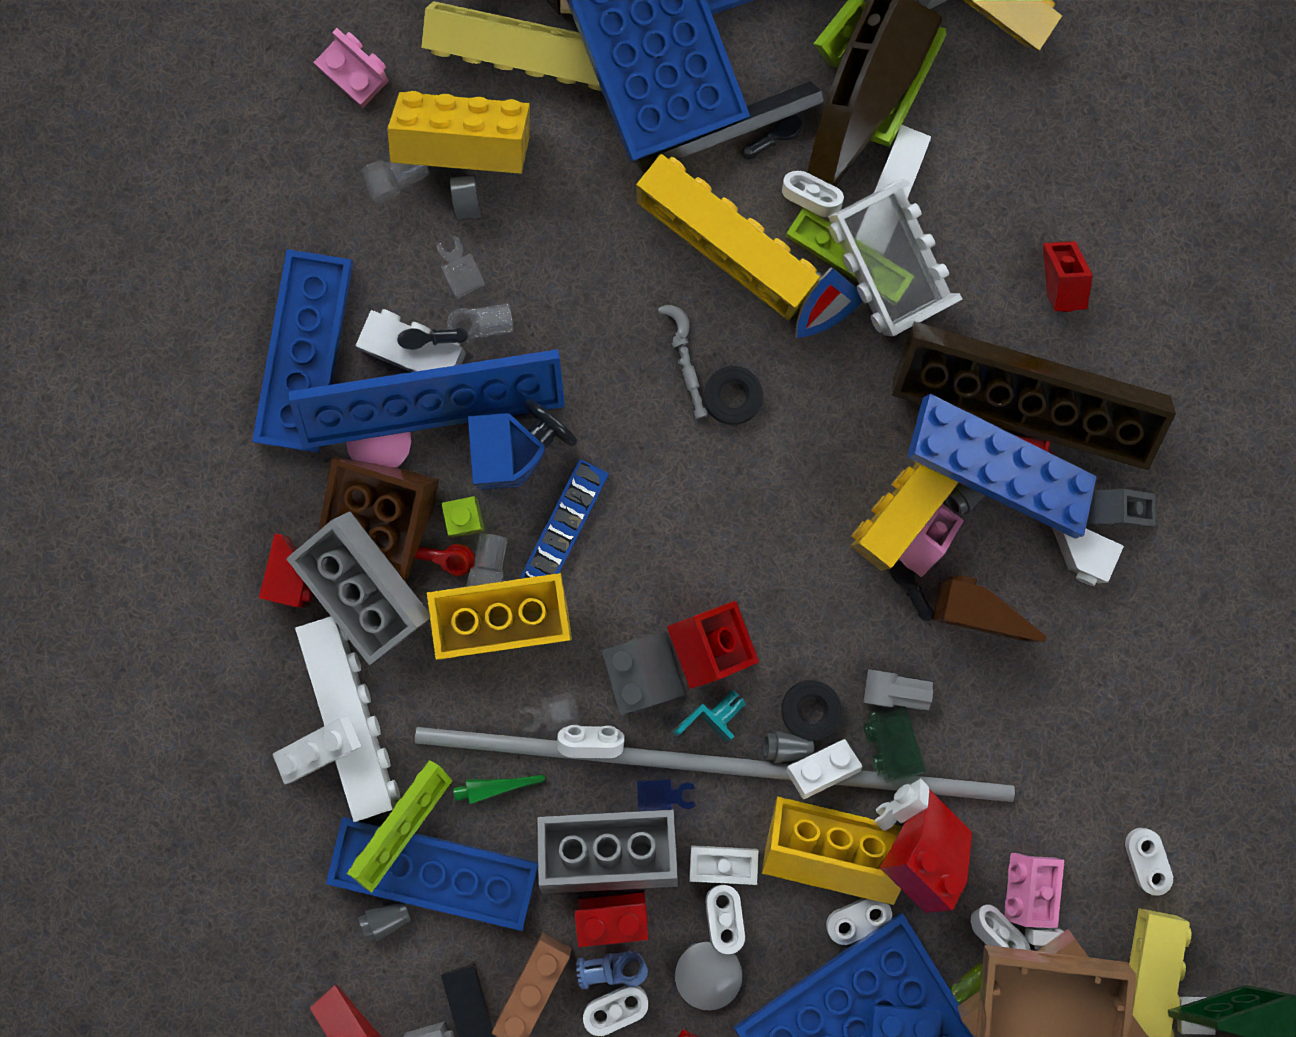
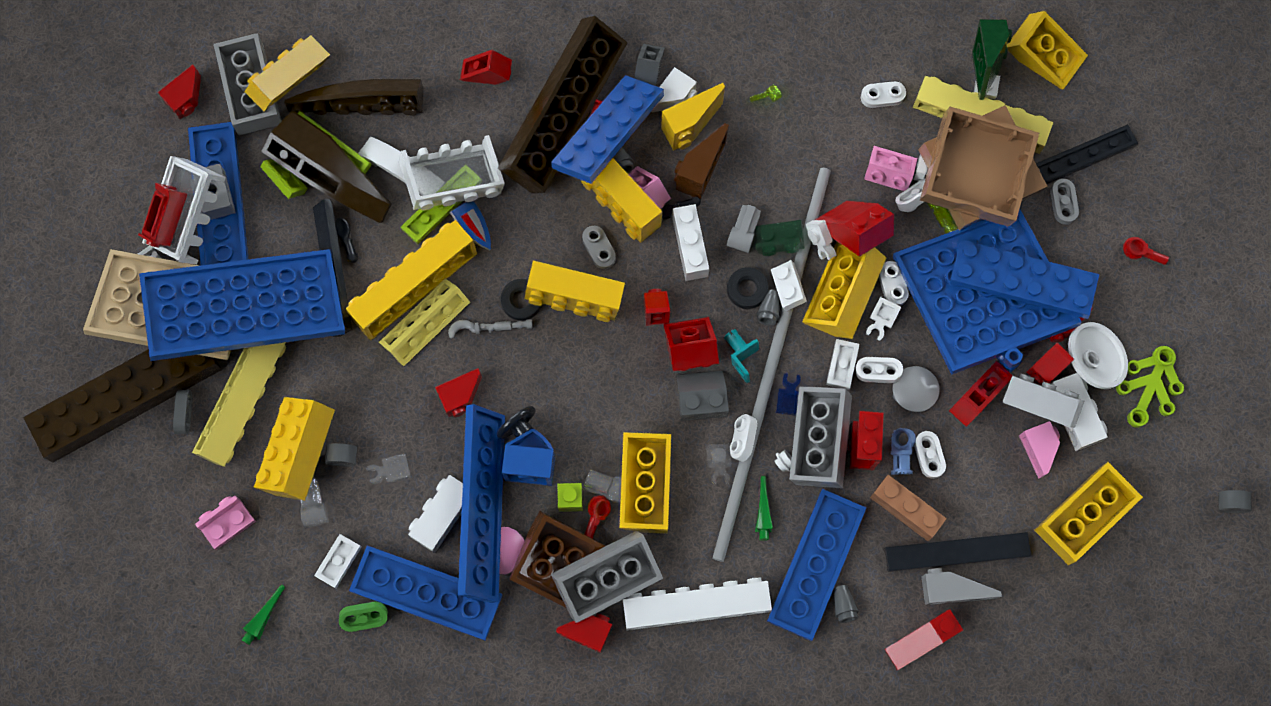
camera: 80 degrees left, 10 degrees down
(225, 142) = (256, 626): none -> green piece
(257, 275) = (363, 616): none -> bright green plate
(316, 750) = (716, 628): white plate -> none
(325, 226) = (338, 561): none -> white plate
(399, 826) = (780, 576): lime plate -> none
(416, 338) = (436, 505): black piece -> none
(485, 321) = (433, 459): clear piece -> none
(566, 521) = (586, 428): tile -> none
(569, 804) = (783, 460): none -> white plate
(581, 337) = (459, 392): none -> red slope
(672, 272) = (426, 323): none -> light yellow fence
(752, 465) = (574, 291): none -> yellow brick
(756, 585) = (656, 307): none -> red slope
(808, 914) = (883, 315): none -> white plate
(812, 193) = (393, 219): white plate -> none
(831, 488) = (598, 246): none -> light grey plate
(861, 617) = (690, 242): none -> white brick
(985, 113) = (362, 96): none -> dark brown wedge
(1046, 579) = (688, 118): none -> yellow slope
(1117, 697) = (773, 92): none -> clear neon green hand

